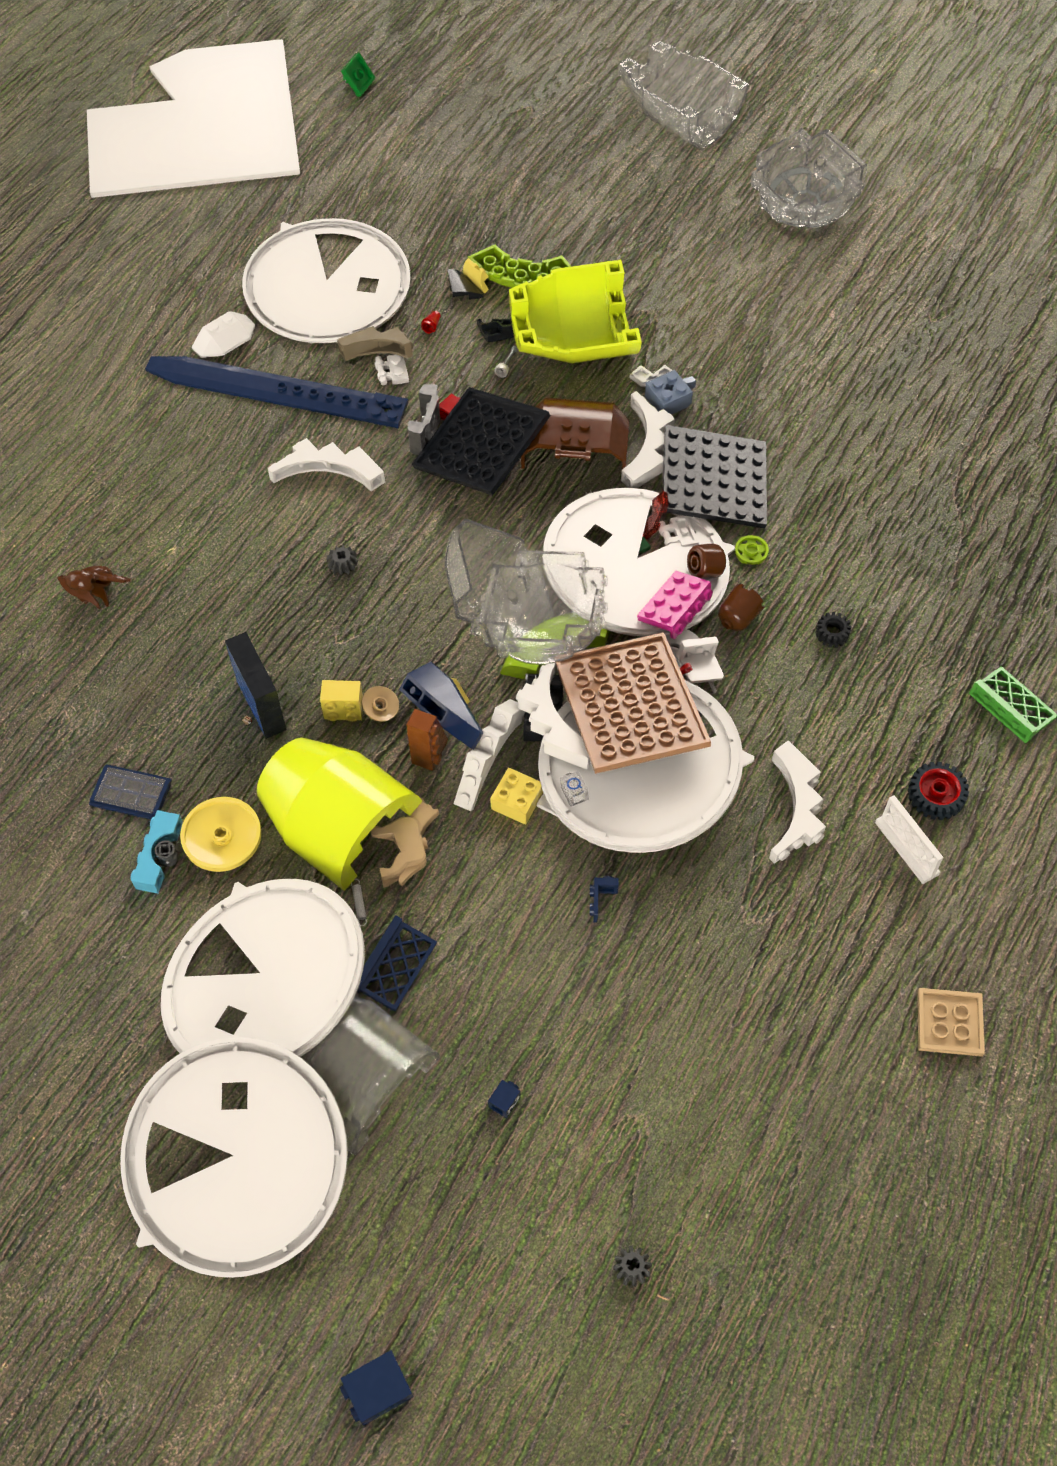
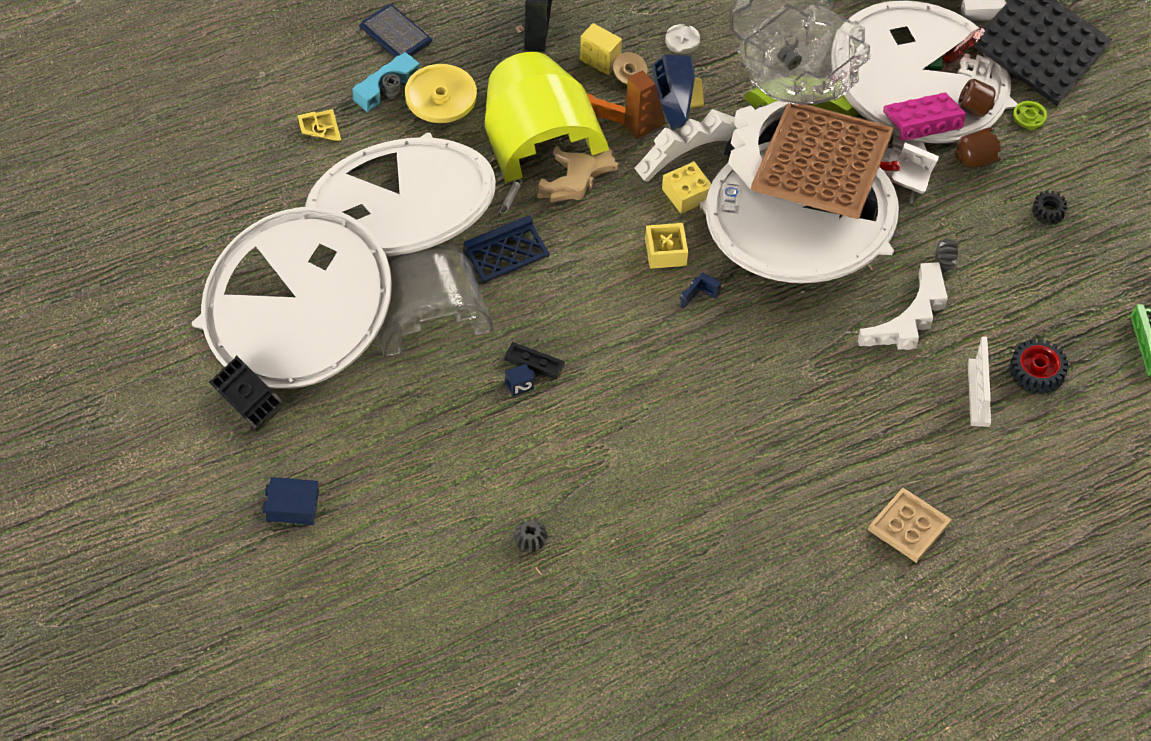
camera: 30 degrees right, 5 degrees down
(122, 937) = (320, 125): none -> light yellow slope
(250, 1295) = (247, 393): none -> black plate
(390, 758) = (607, 110): none -> orange hinge
(404, 645) = (682, 39): none -> white tile
(503, 1067) = (535, 360): none -> black plate
(523, 614) = (789, 57): none -> dark grey wheel
(541, 869) = (666, 245): none -> light yellow brick
(787, 728) = (946, 254): none -> dark grey gear

